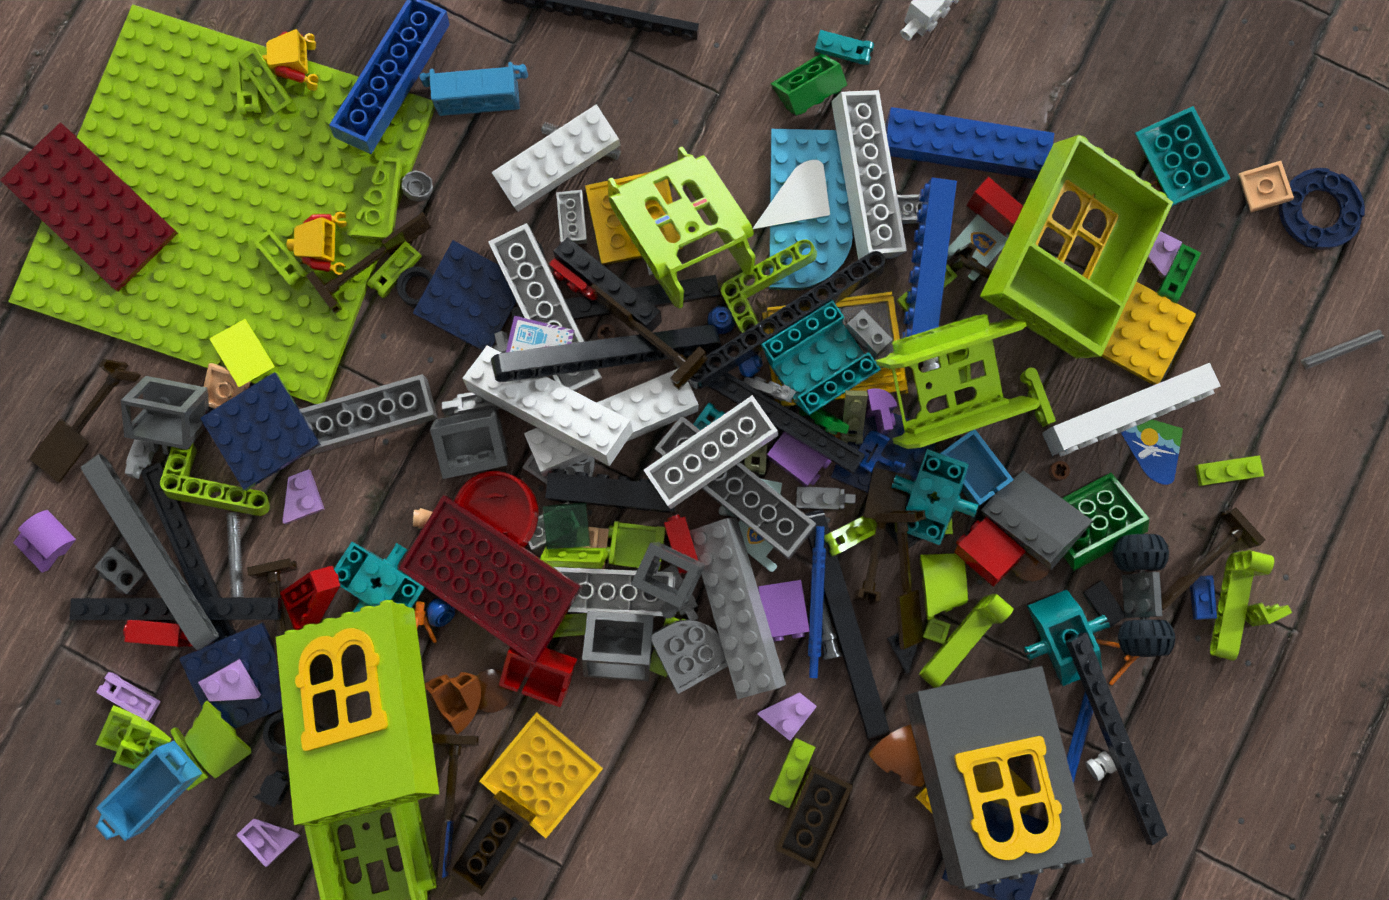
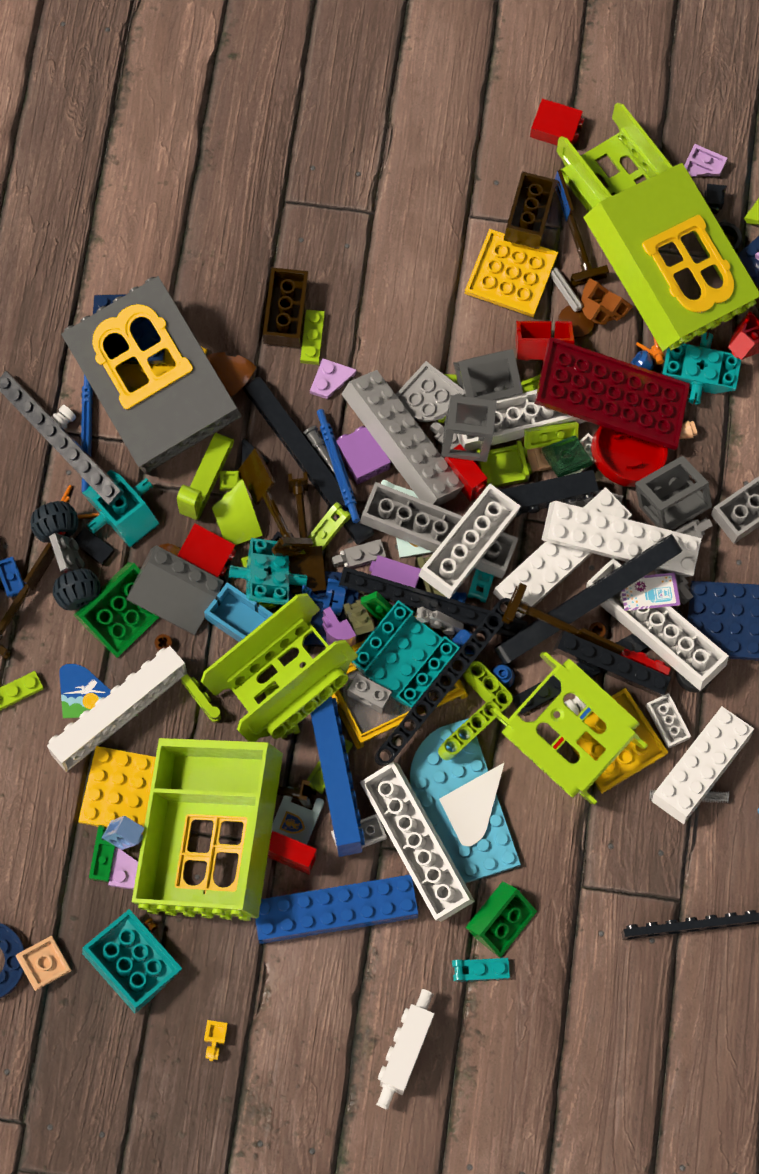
camera: 160 degrees right, 10 degrees down
(488, 730) = (566, 290): none -> light grey axle
(1117, 69) = (214, 1034): none -> yellow plate
(1161, 275) = (123, 833): none -> medium blue brick

